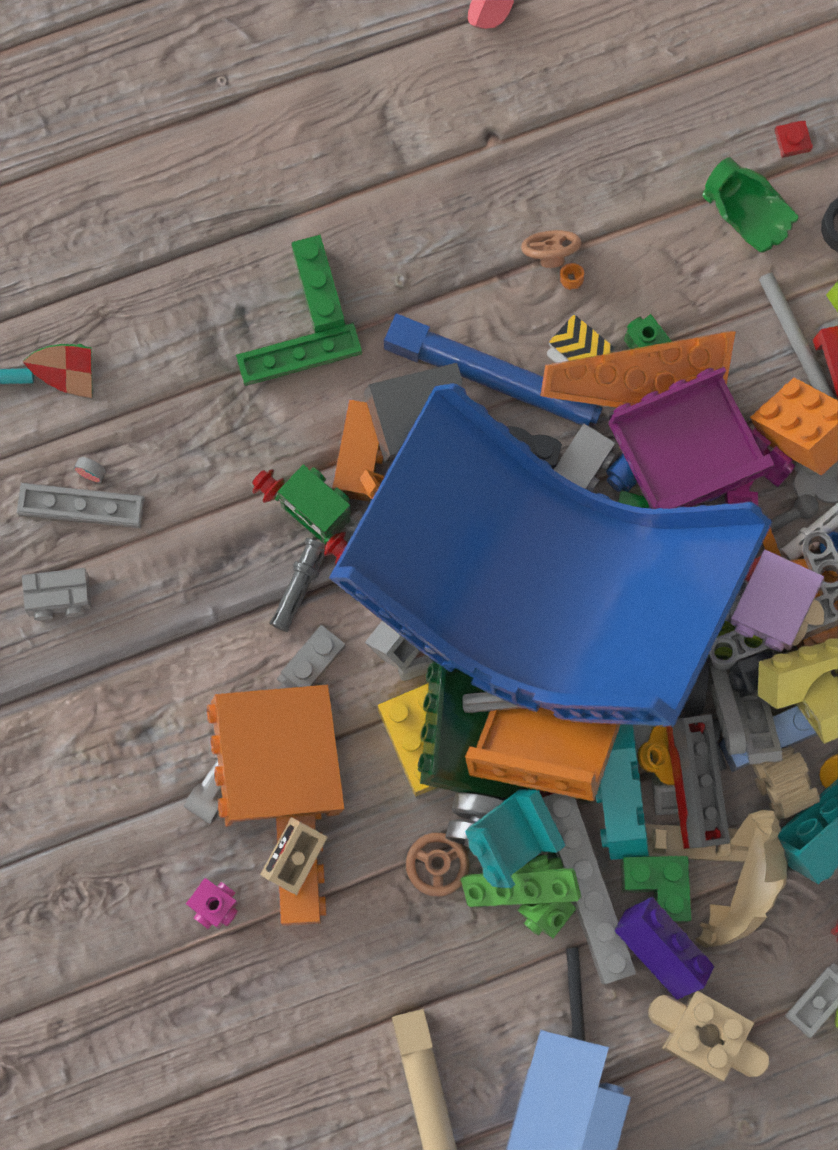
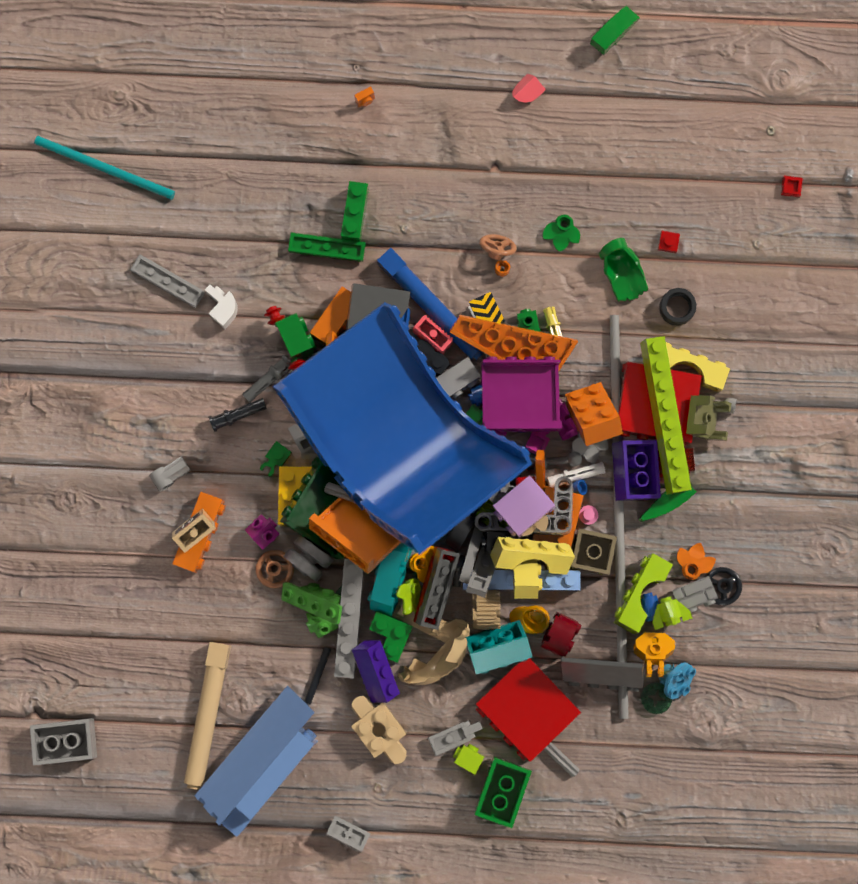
camera: 25 degrees right, 5 degrees up
(56, 593) = (131, 325): light grey brick -> none
(64, 368) = (191, 198): shield -> none
(90, 469) = (180, 263): light grey tile -> none
(188, 505) = (226, 308): none -> white brick
(204, 896) = (134, 534): dark pink brick -> none
(256, 115) = (364, 97): none -> orange plate
(266, 666) = (228, 417): none -> black pin
(275, 753) = (210, 469): orange panel -> none
(311, 659) = (253, 426): light grey hinge -> none
(364, 694) = (277, 456): none -> green plate
(395, 814) = (262, 531): none -> magenta brick
(513, 836) = (317, 573): teal panel -> none
(518, 411) = (428, 331): none -> coral brick
(634, 194) = (562, 235): none -> green plate
(660, 807) = (410, 594): none -> lime plate
(679, 320) = (552, 321): none -> light yellow axle

